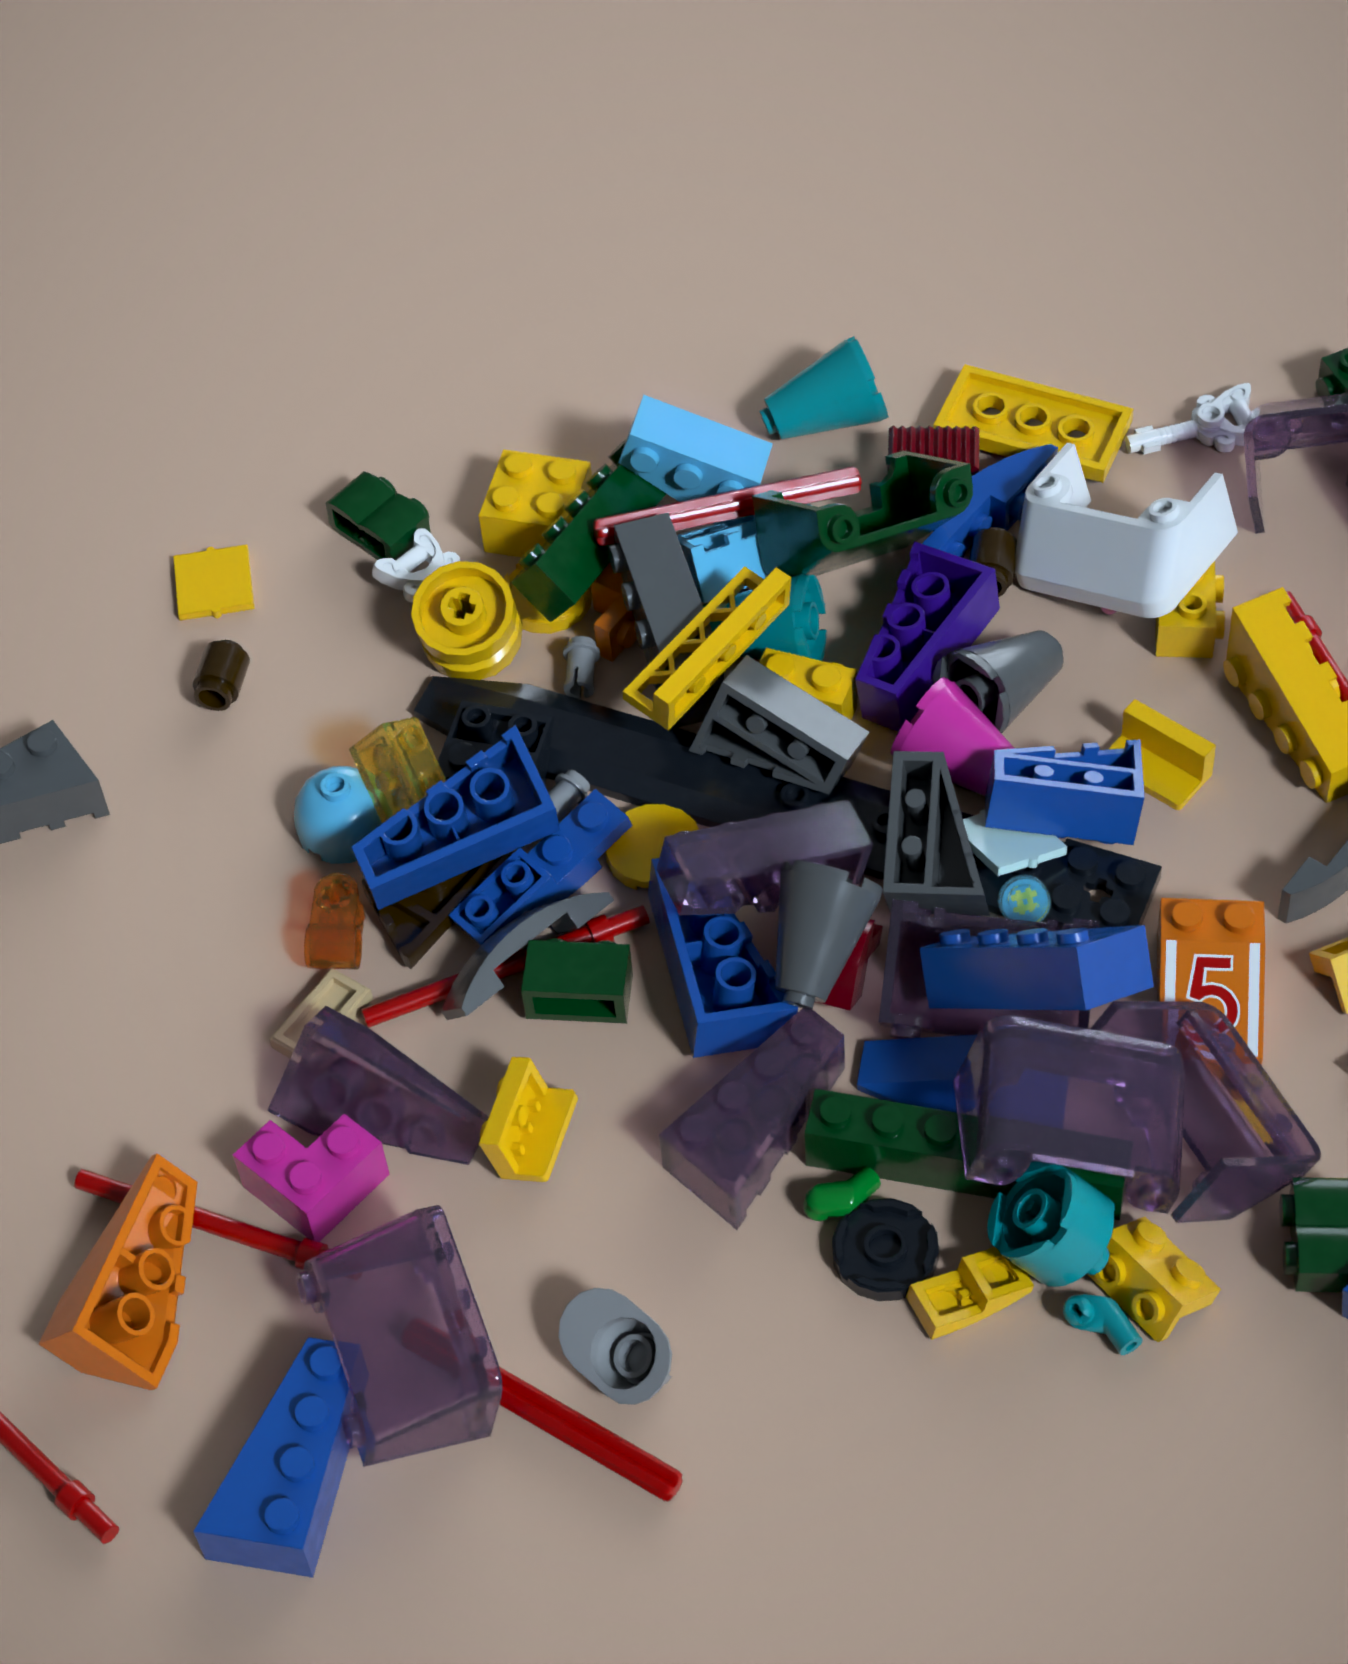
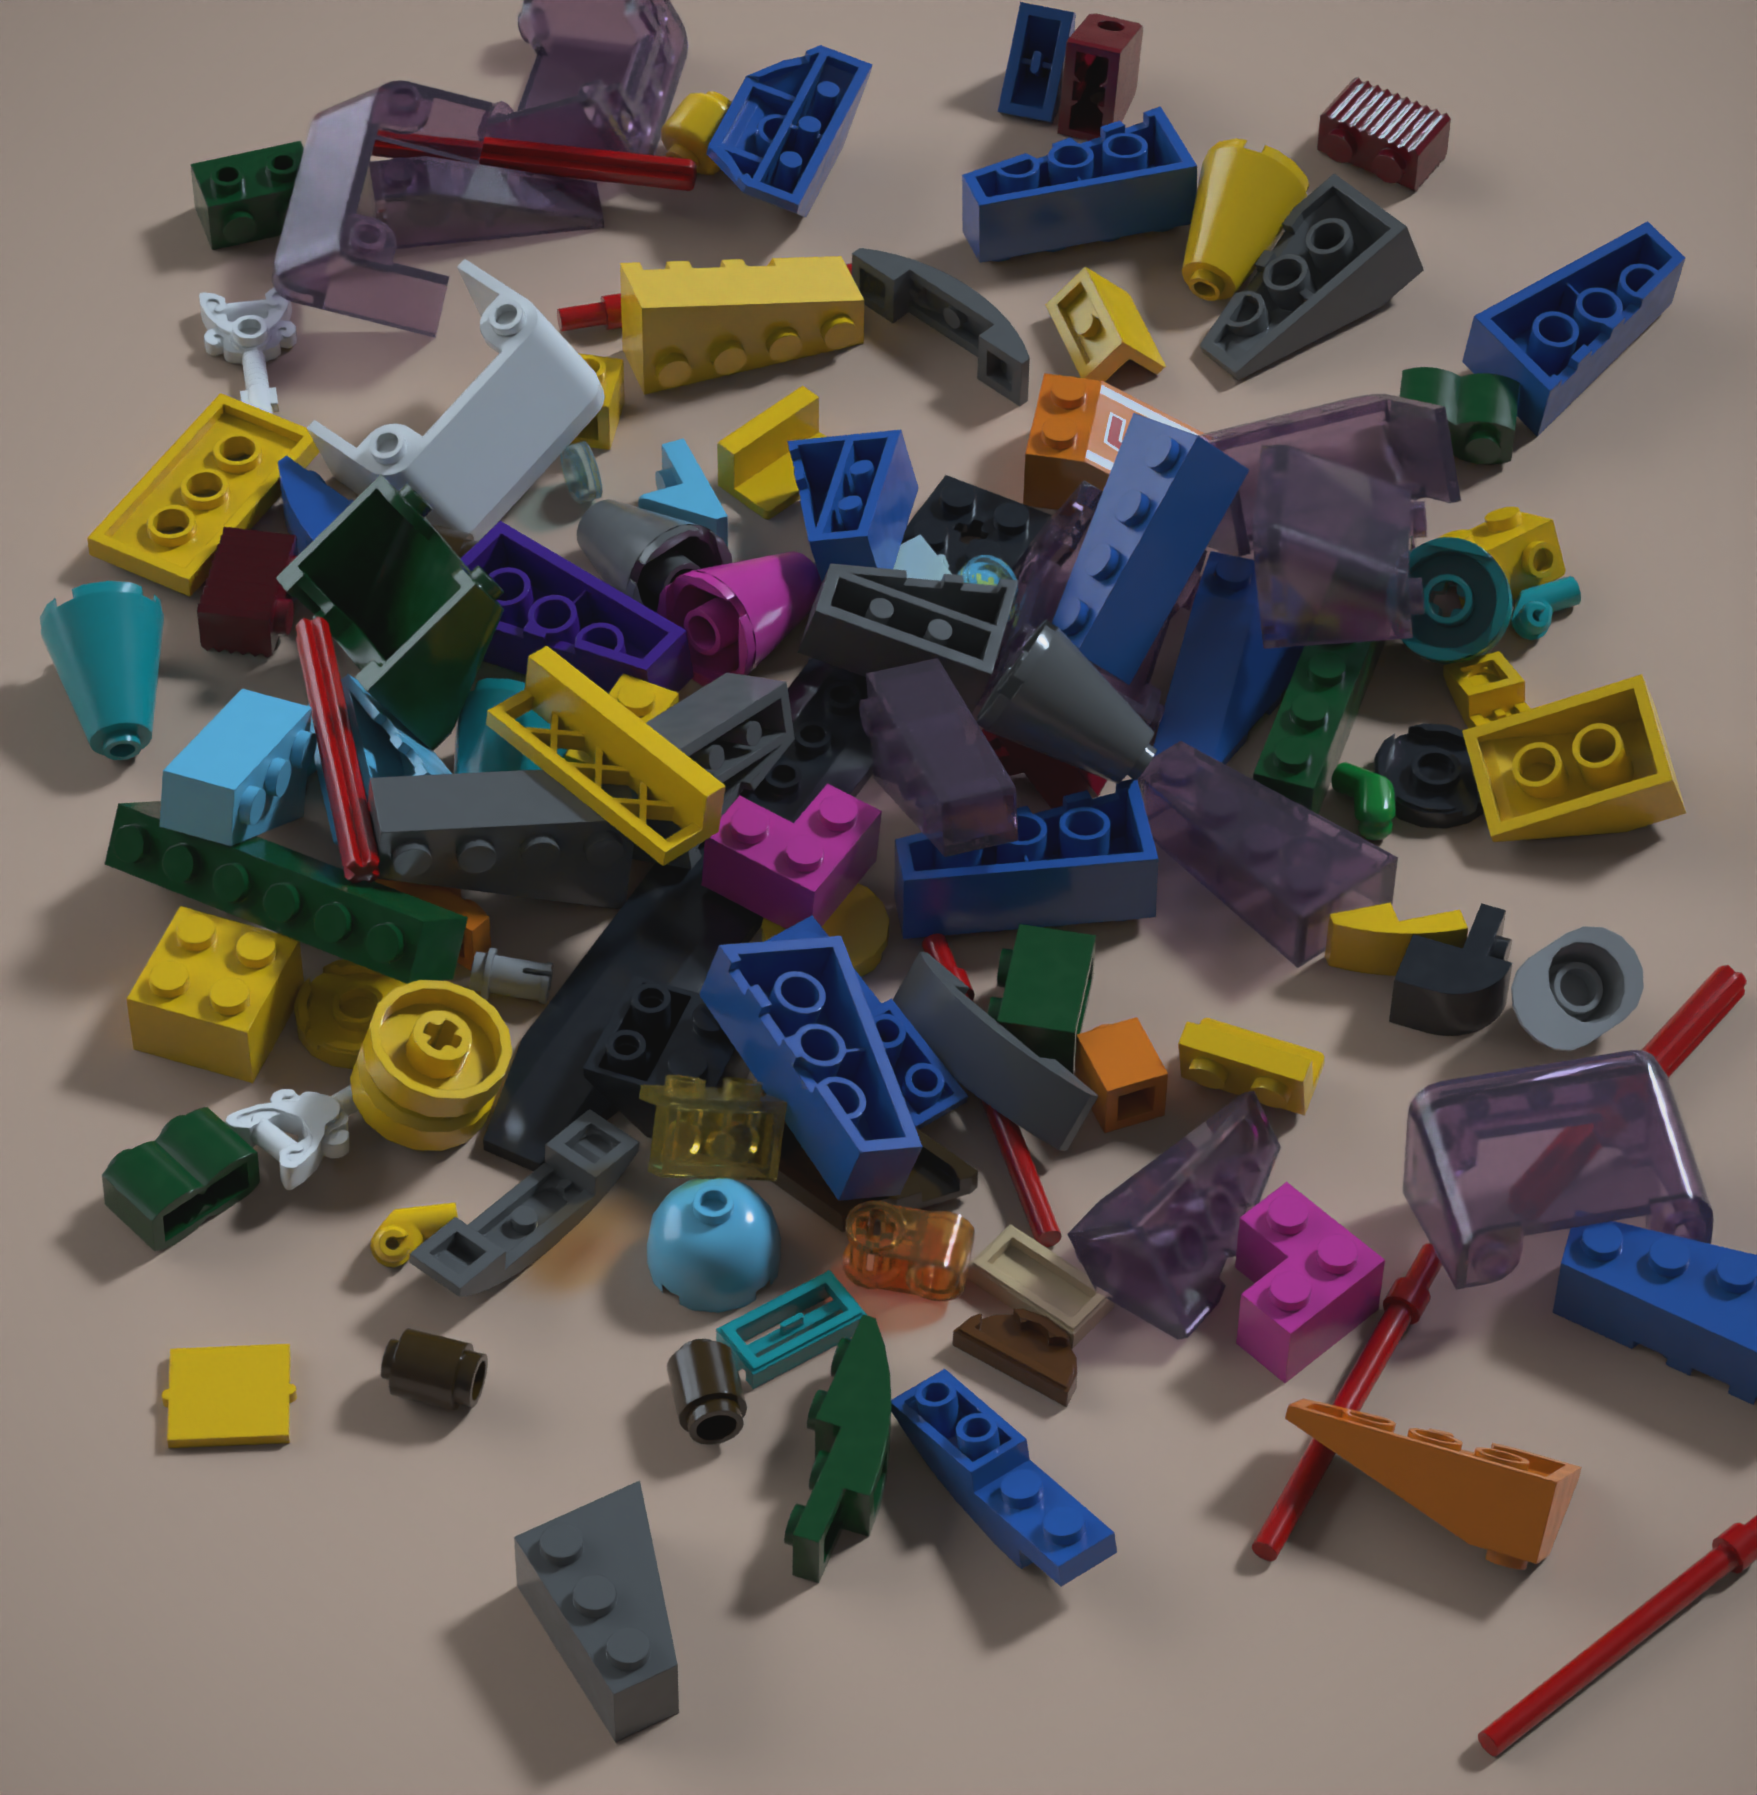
camera: 90 degrees left, 5 degrees down
(135, 1002) = (997, 1484): none -> blue slope
(170, 916) = (850, 1452): none -> dark green slope
(206, 824) = (707, 1391): none -> dark brown brick
(258, 1015) = (1024, 1348): none -> reddish brown tile
(296, 897) = (799, 1335): none -> teal tile
(342, 698) = (534, 1214): none -> dark grey slope
(346, 646) = (407, 1230): none -> yellow arm
(516, 1033) = (1123, 1072): none -> orange brick
(631, 1265) = (1453, 987): none -> black brick
(676, 1217) = (1376, 941): none -> yellow slope
(679, 790) = (790, 867): none -> dark pink brick
(885, 1347) = (1576, 766): none -> yellow slope
(1081, 705) = (685, 491): none -> medium azure slope
(1103, 631) = (581, 472): none -> clear light blue tile

